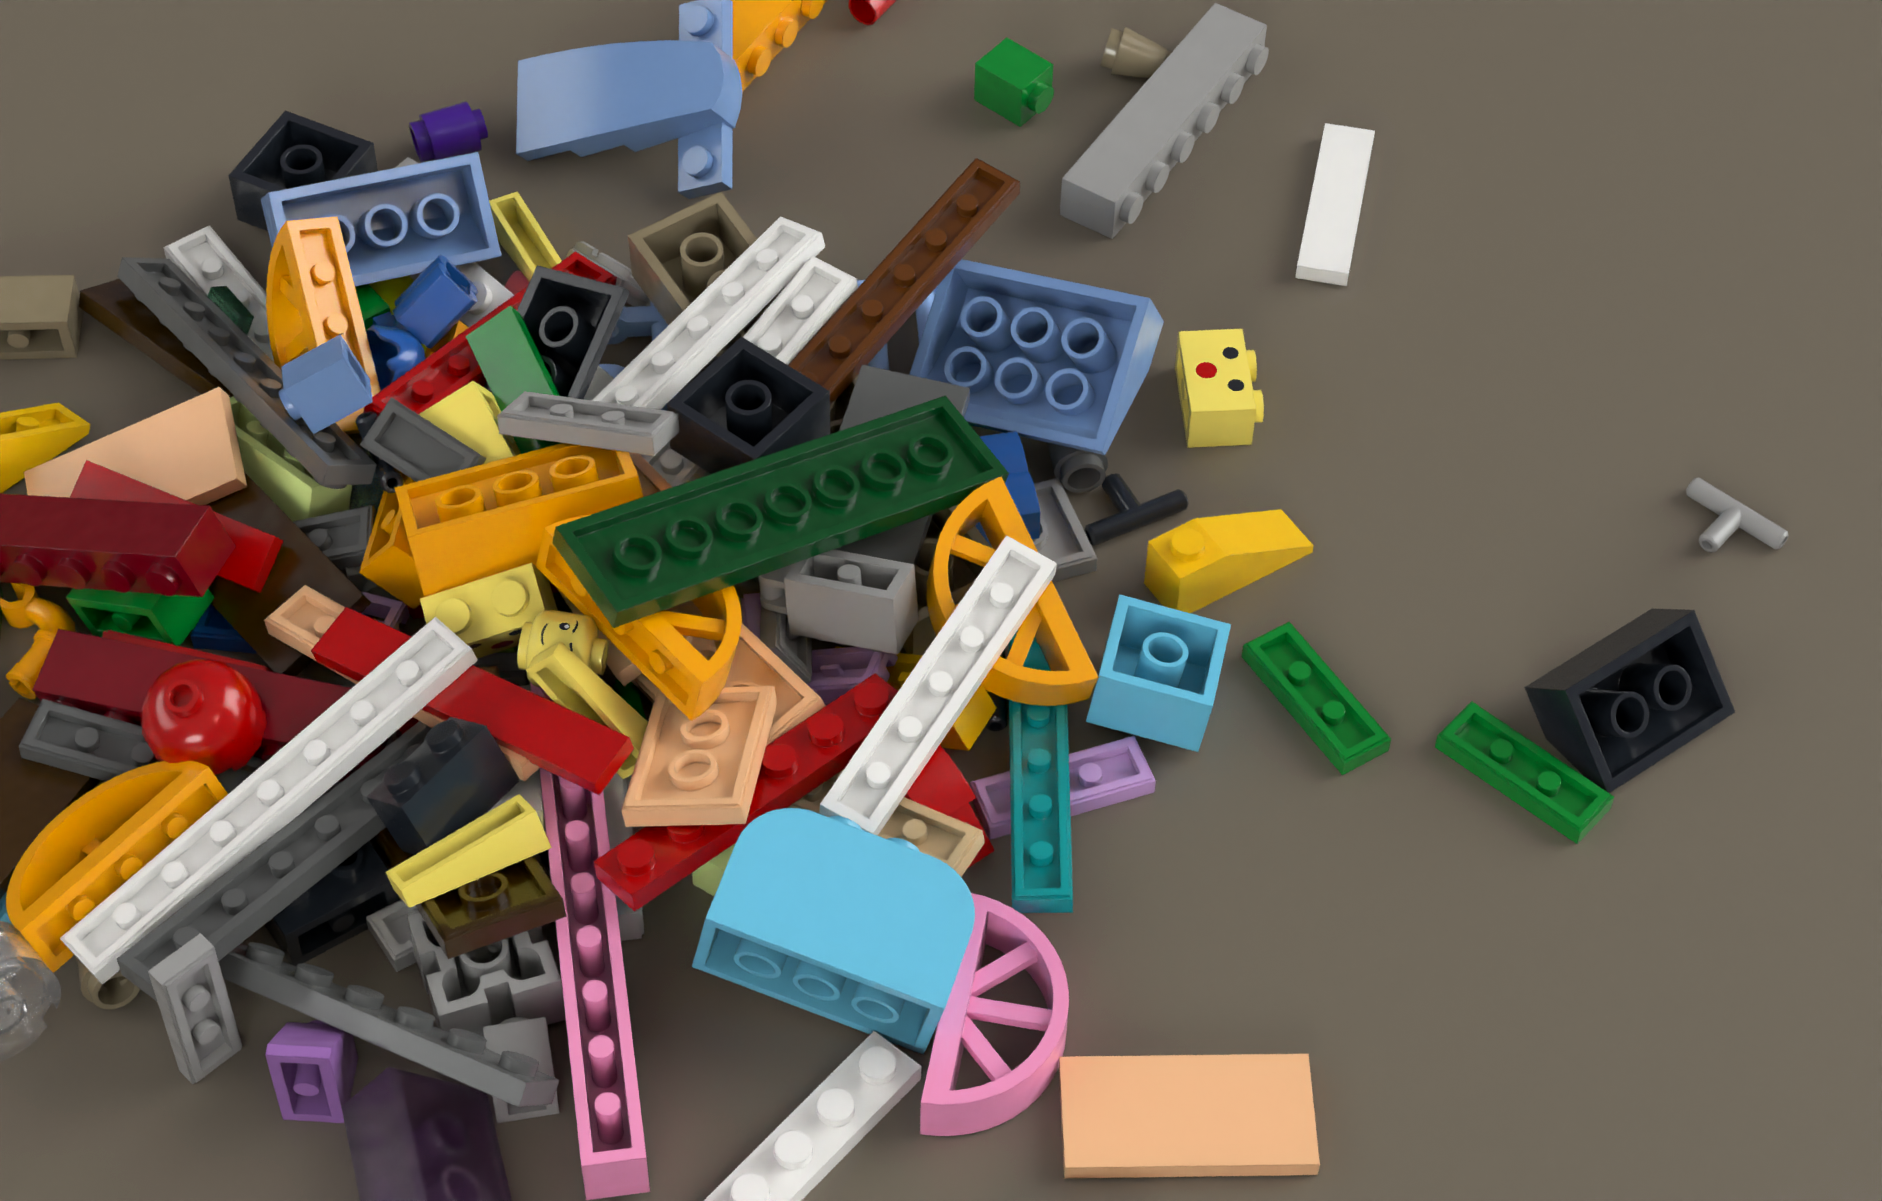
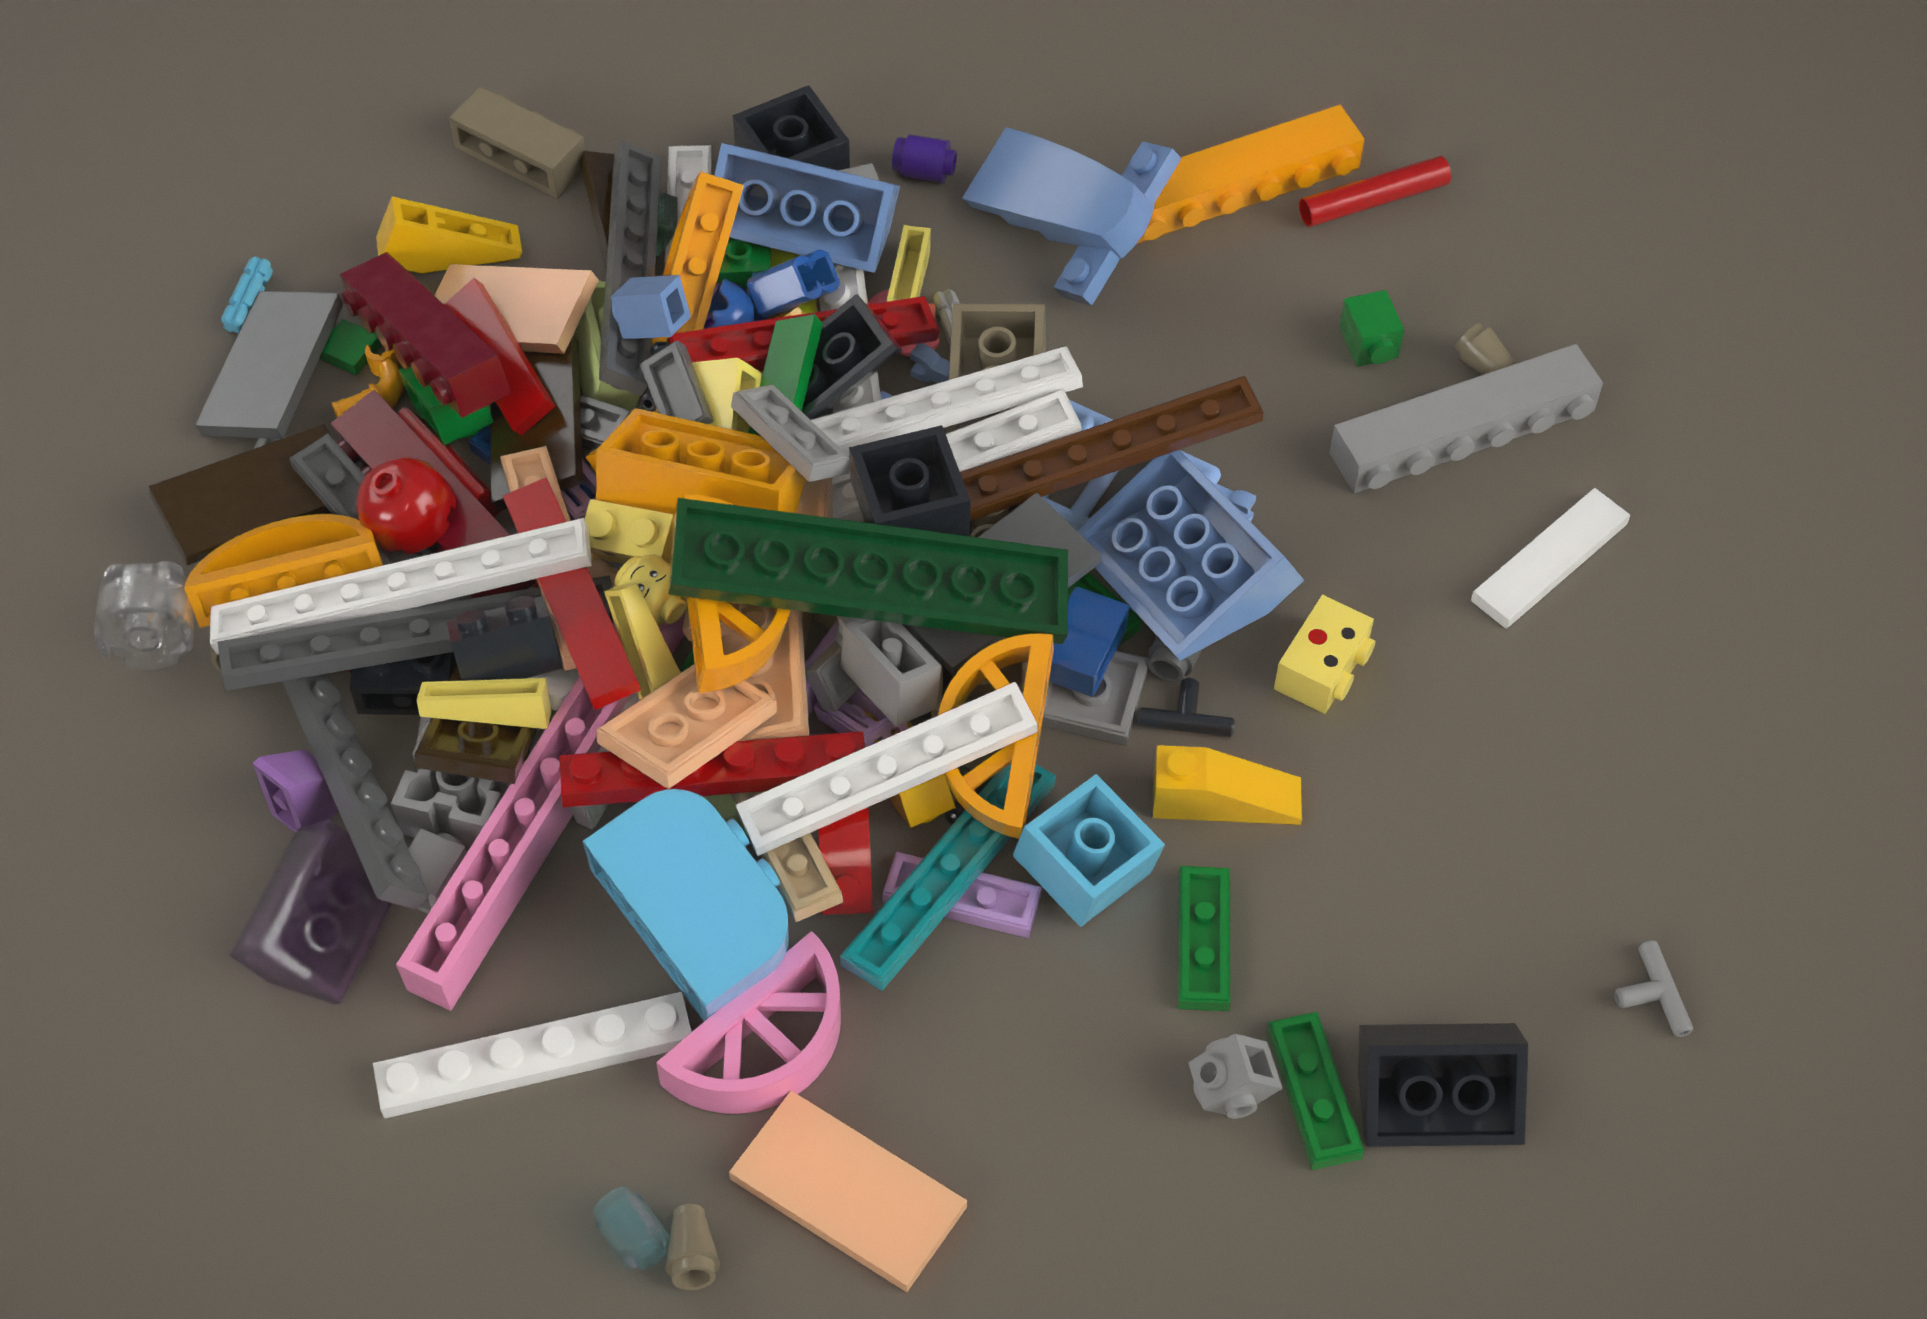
camera: 35 degrees right, 5 degrees up
(195, 1008) = (246, 705): light grey tile -> none
(1456, 795) = (1234, 1076): none -> light grey brick

